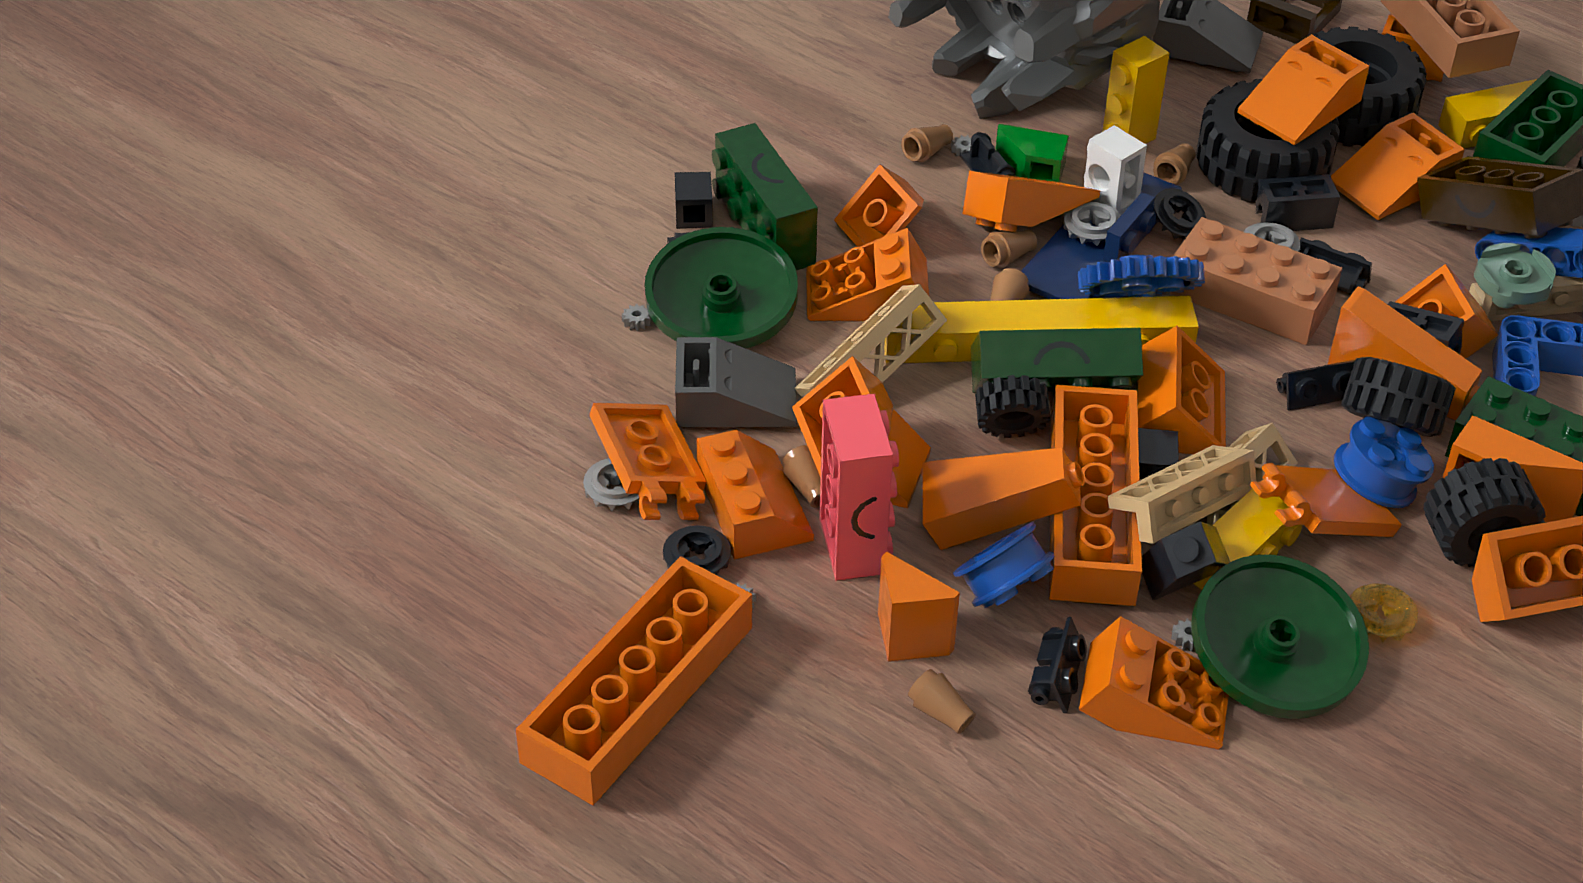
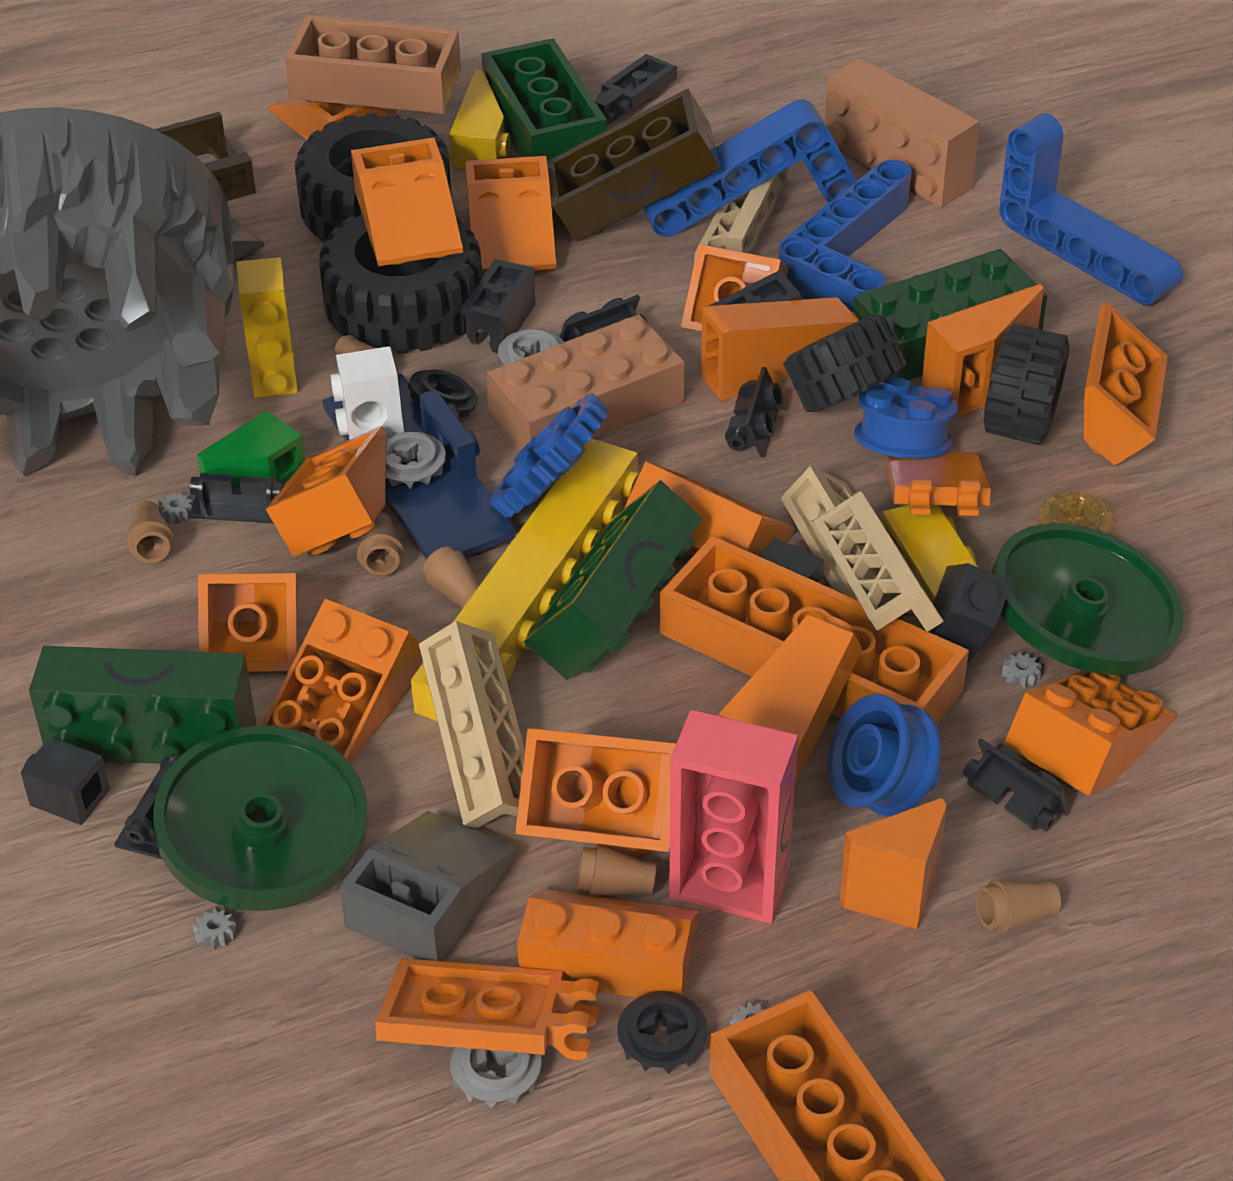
camera: 60 degrees left, 0 degrees up
(1012, 406) = (650, 645): black tyre -> none
(1514, 275) = (751, 226): sand green plate -> none

